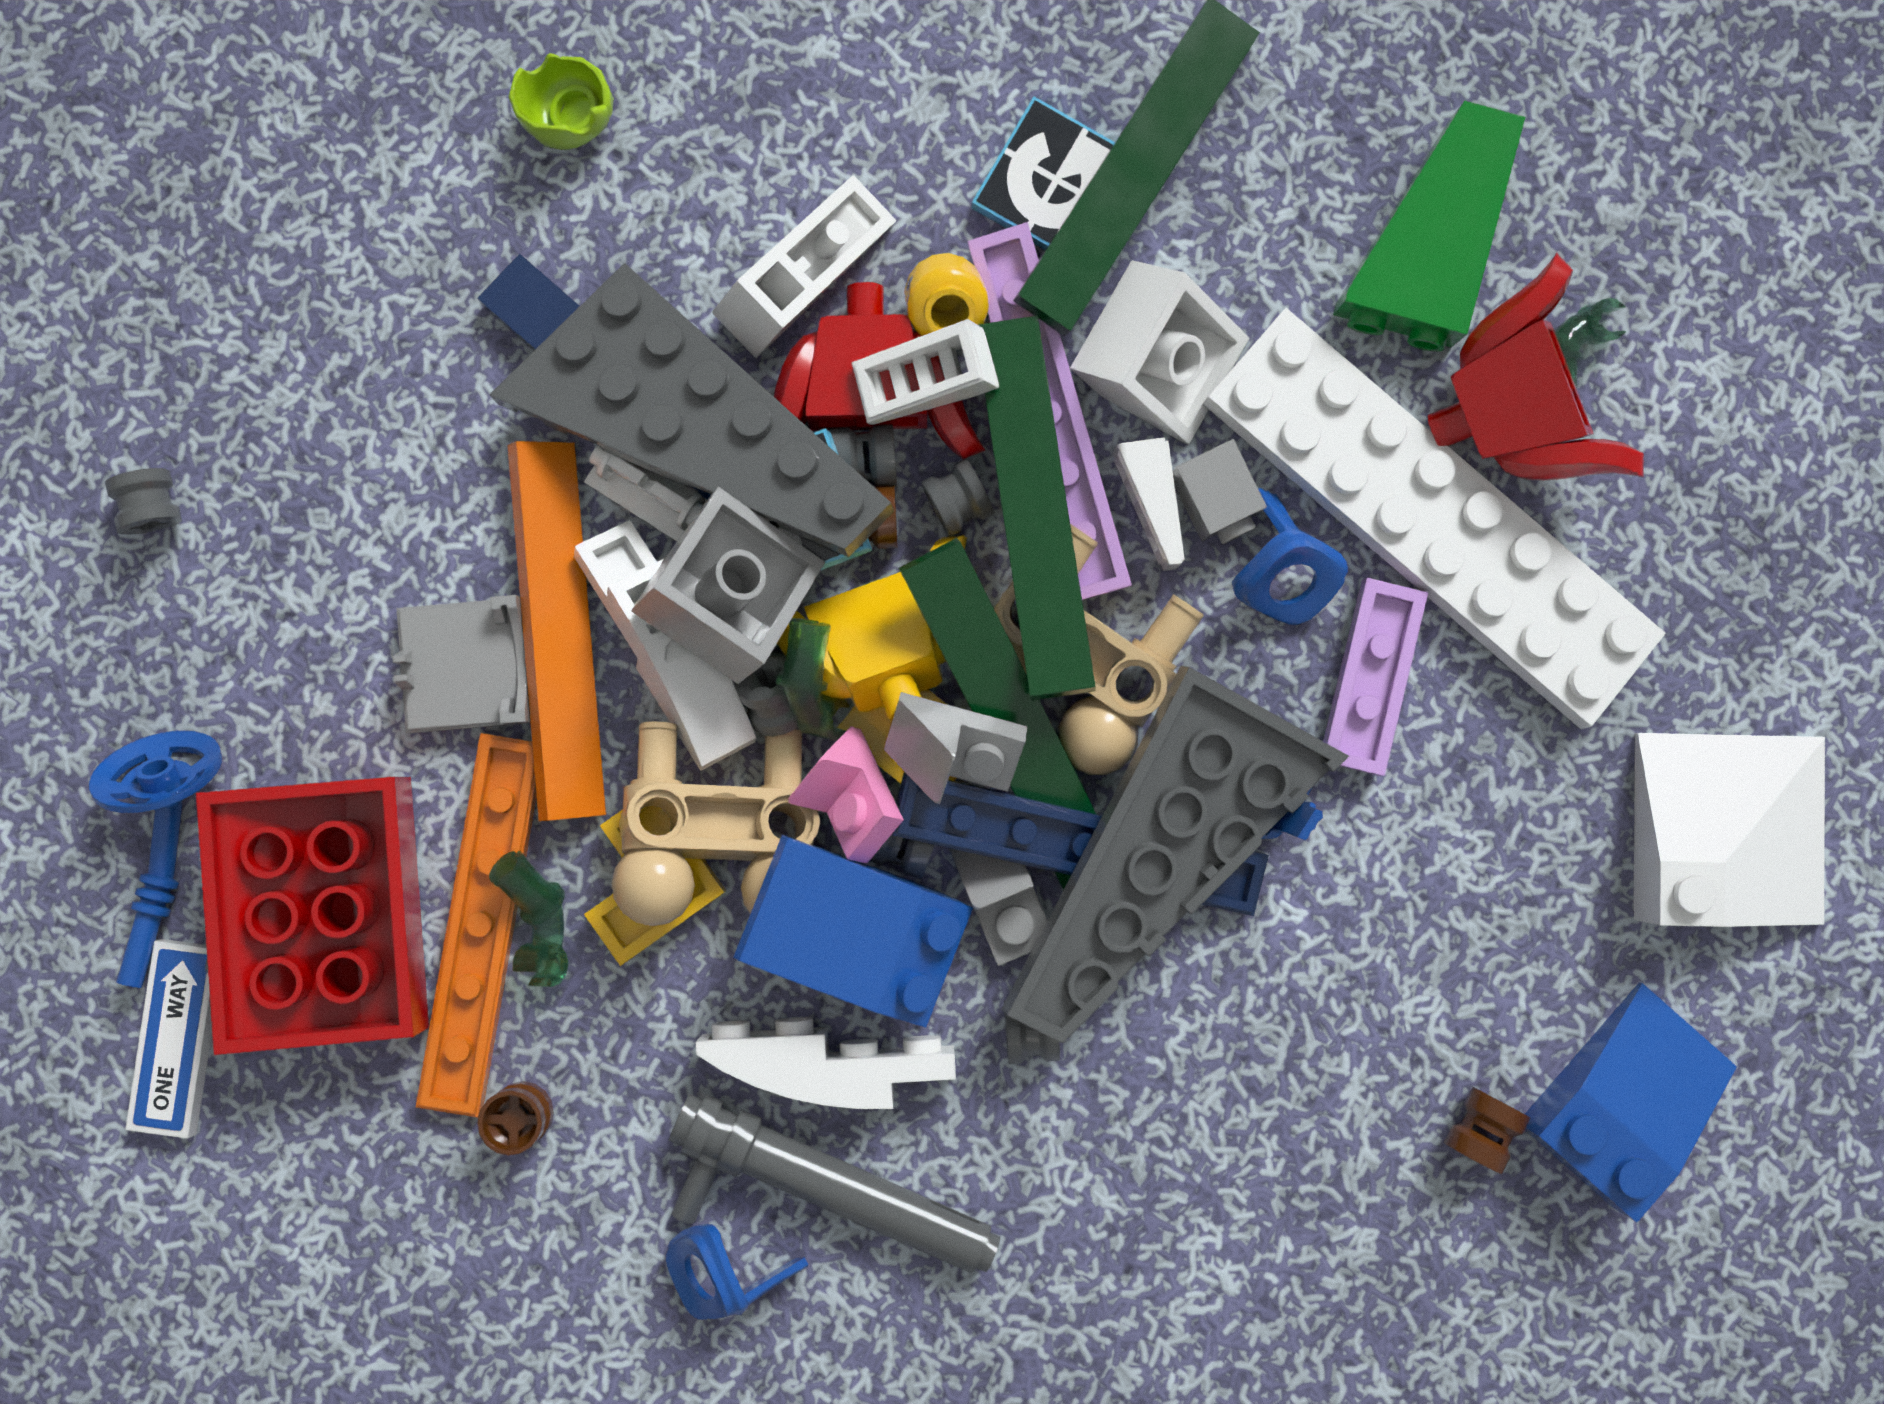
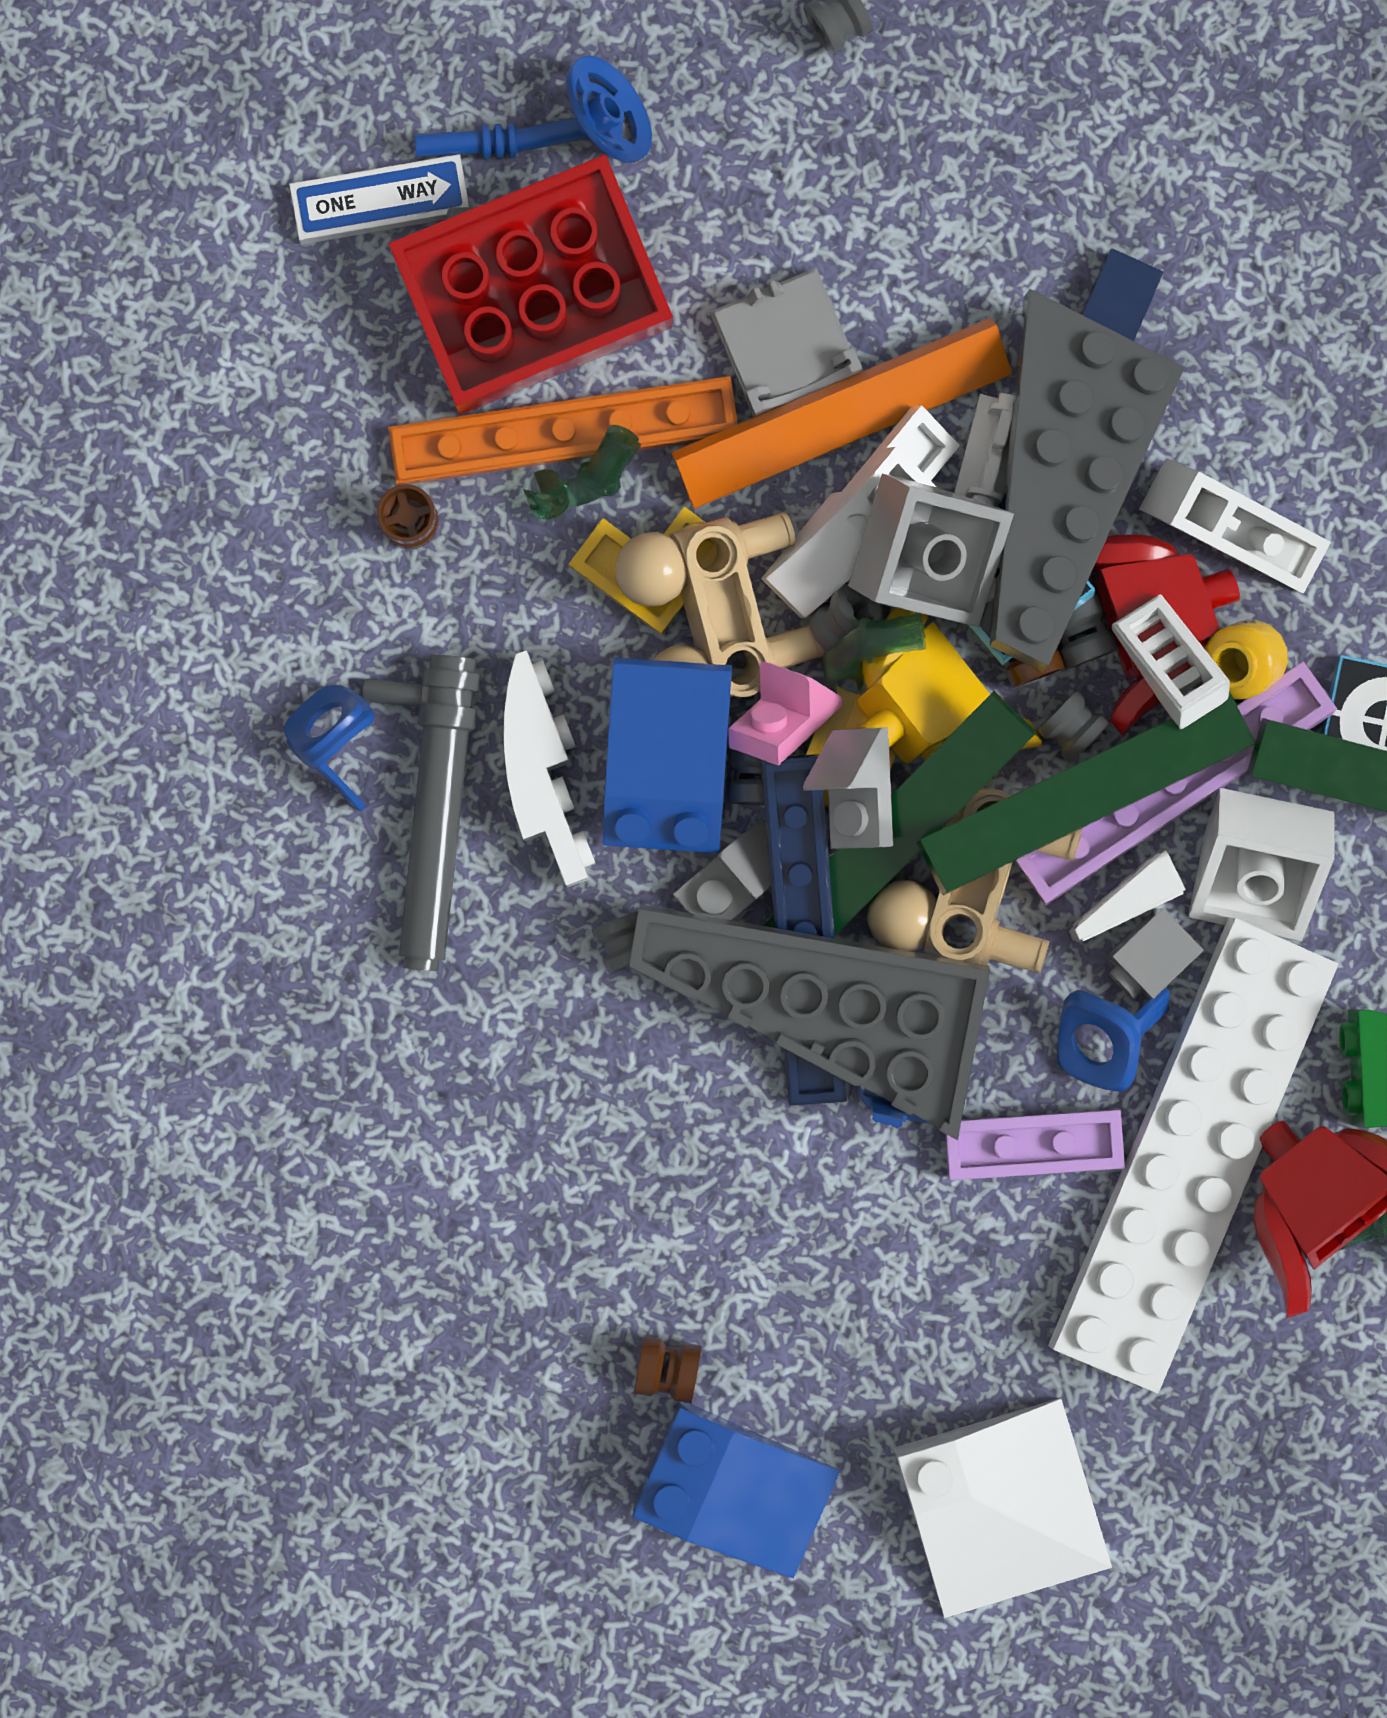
camera: 75 degrees right, 0 degrees up
(560, 83) = (1327, 270): lime hair -> none

